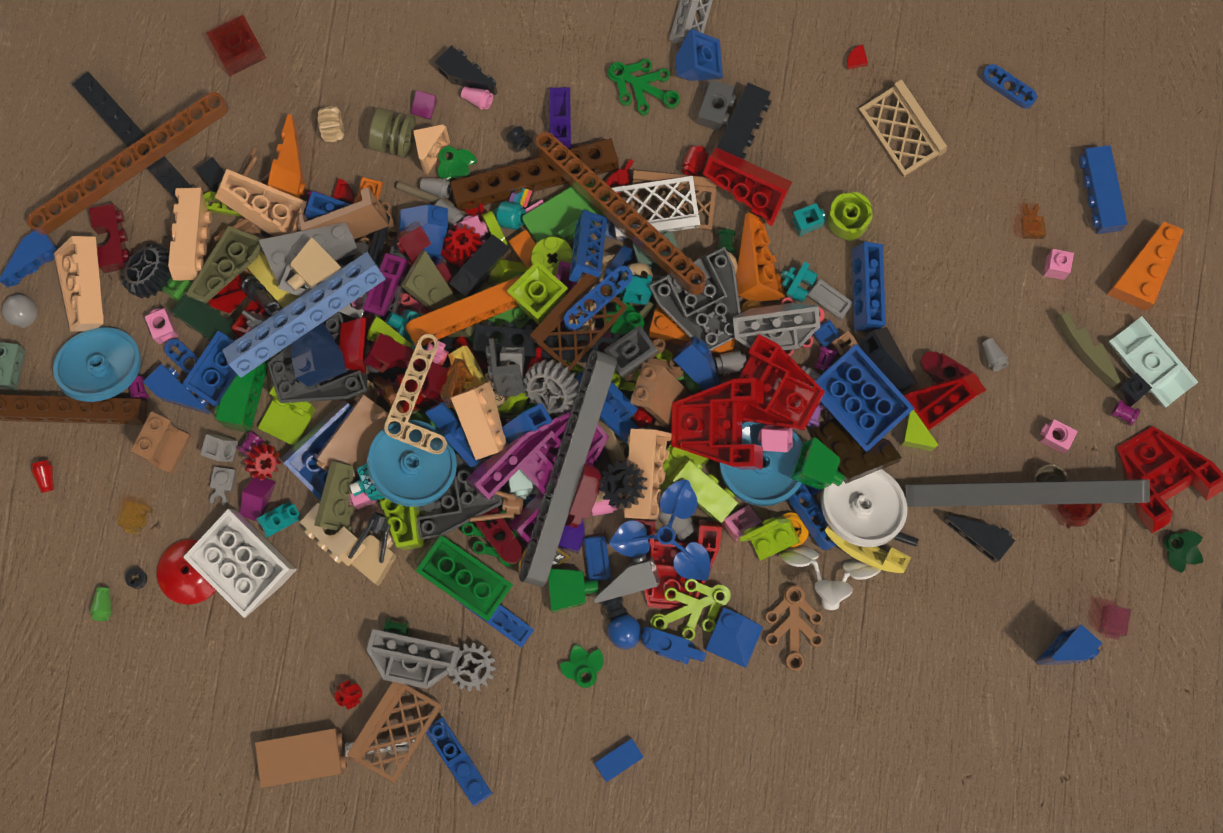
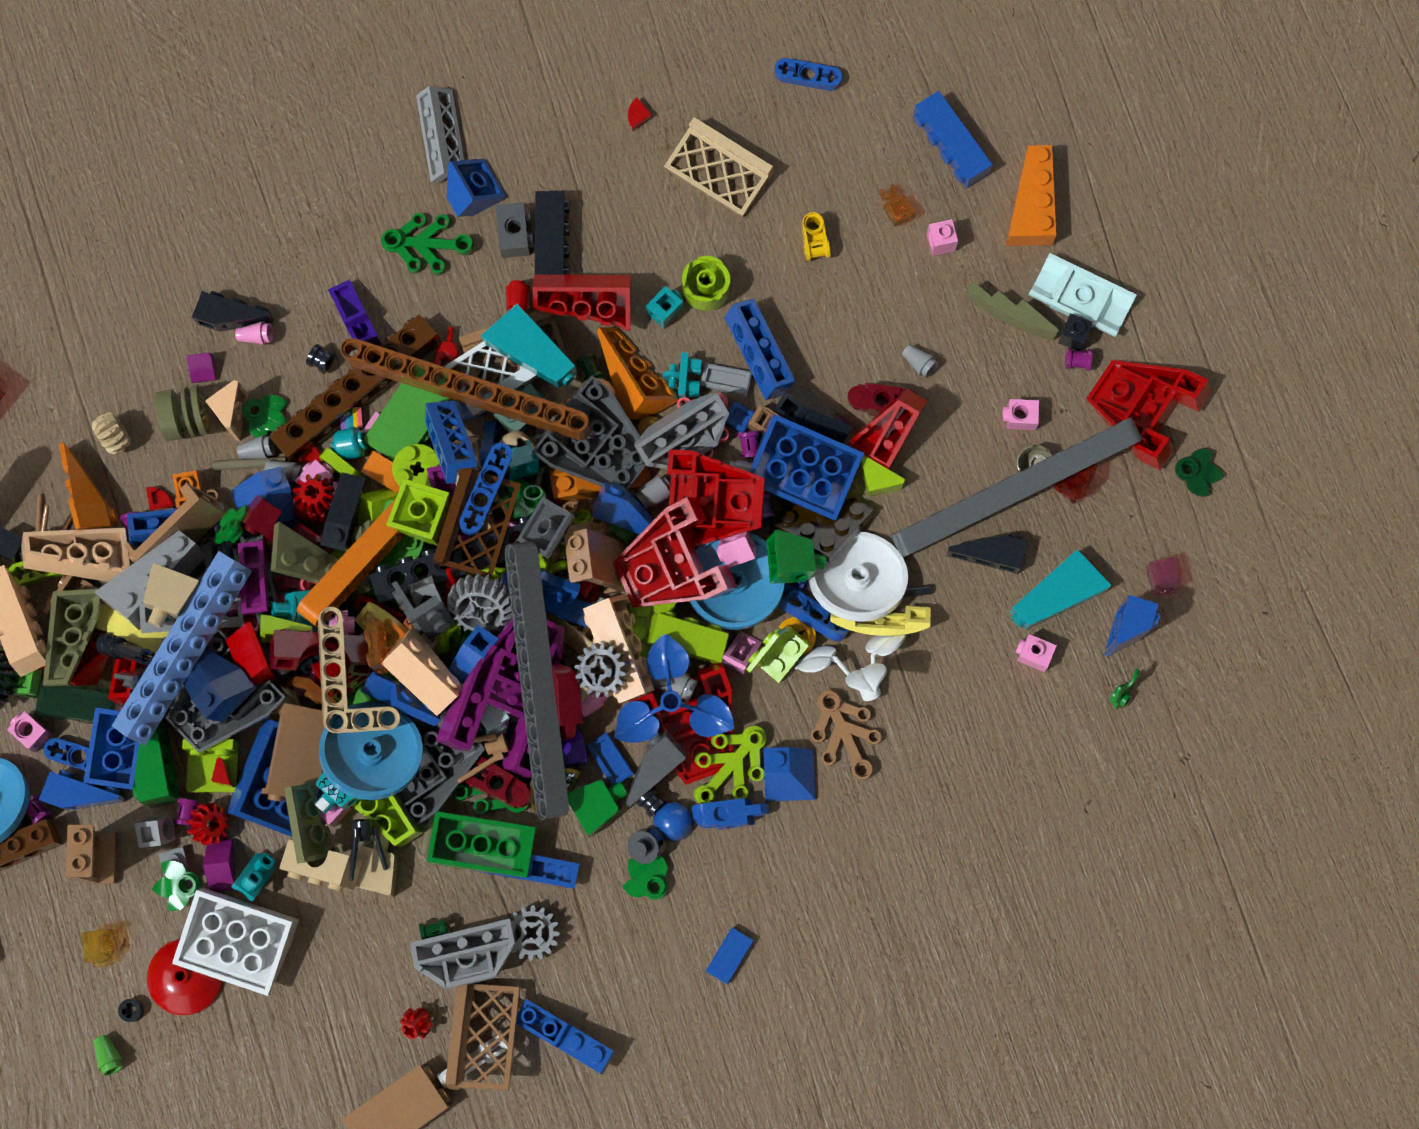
camera: 25 degrees left, 0 degrees up
(214, 496) = (174, 884): none -> plate
(291, 427) = (222, 773): none -> red slope
(387, 236) = (230, 525): none -> green plate
(594, 640) = (646, 845): none -> black piece
(685, 201) = (527, 345): none -> teal slope
(953, 221) = (815, 241): none -> yellow piece
(980, 633) = (1035, 652): none -> bright pink brick
(1027, 593) = (1063, 589): none -> teal slope
(1035, 701) = (1121, 694): none -> green plate

